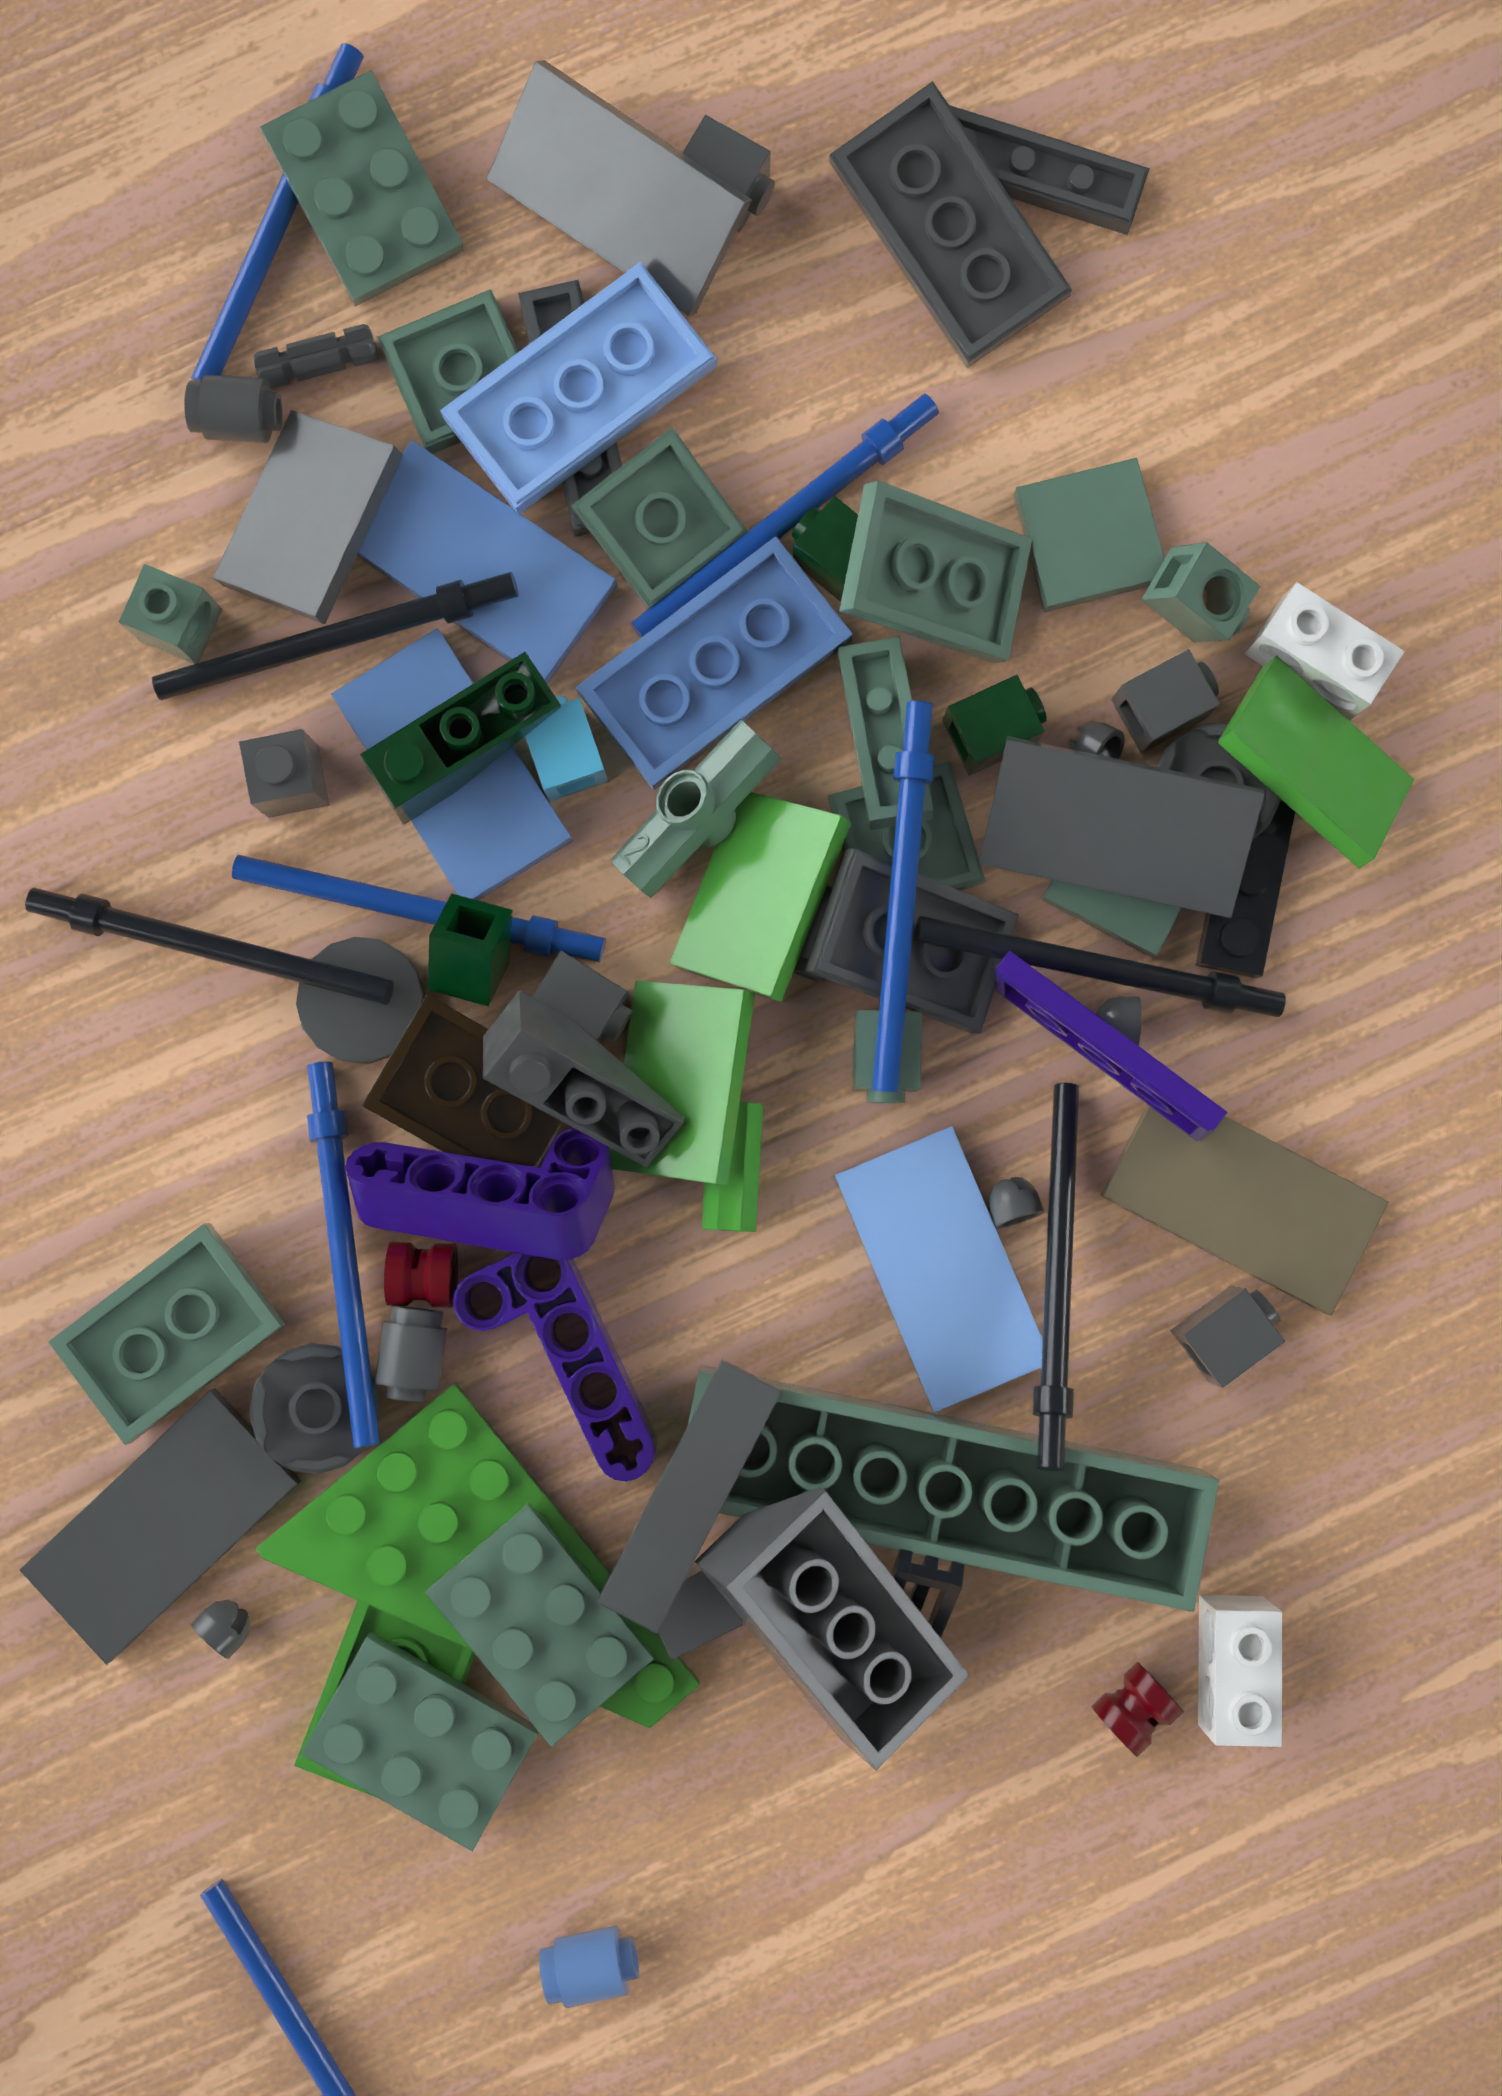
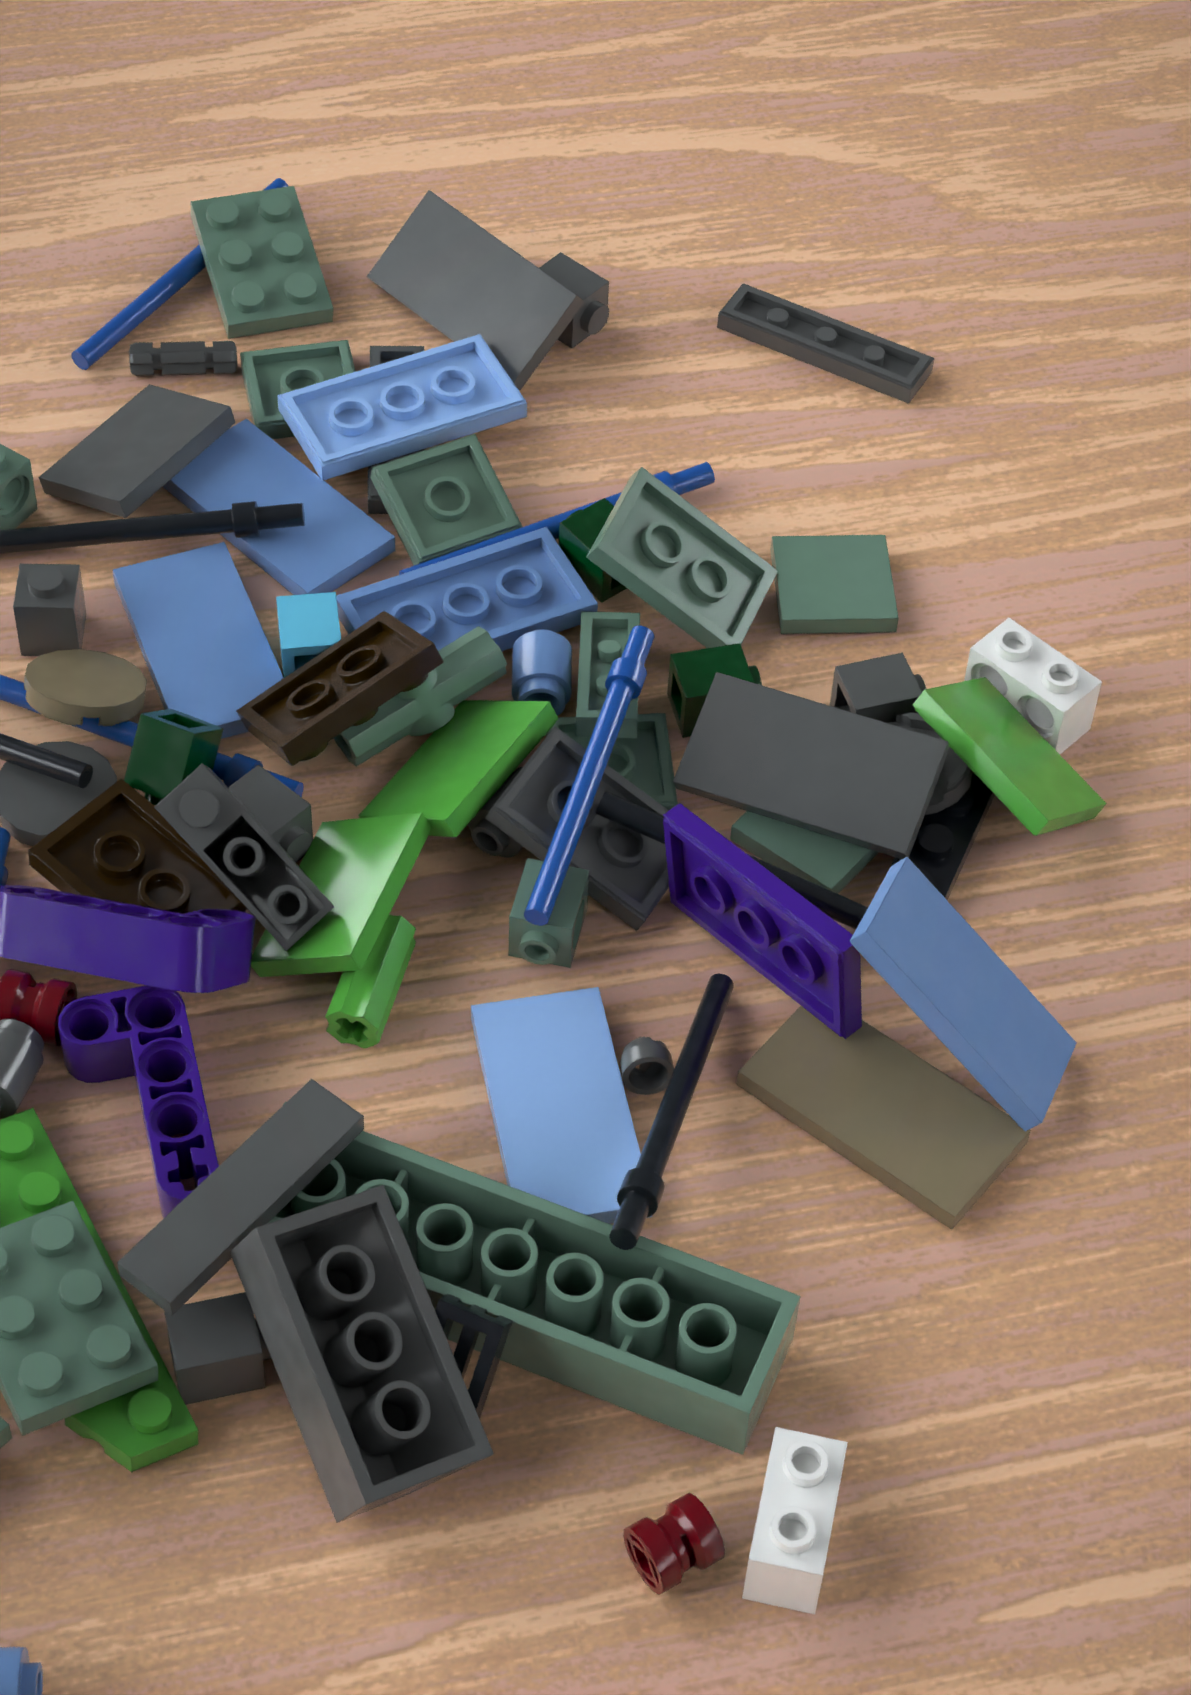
camera: 10 degrees right, 35 degrees down
(233, 408) = (100, 372): dark grey brick -> none
(351, 868) = (84, 684): none -> dark tan tile
(459, 737) = (205, 601): dark green slope -> none
(619, 839) = (340, 688): none -> dark brown plate
(813, 740) = (542, 668): none -> medium blue brick
(950, 224) = (753, 364): dark grey tile -> none
(1179, 589) = (921, 608): sand green brick -> none
(1229, 1334) = (842, 1209): dark grey brick -> none
(1319, 1103) = (964, 993): none -> medium blue tile

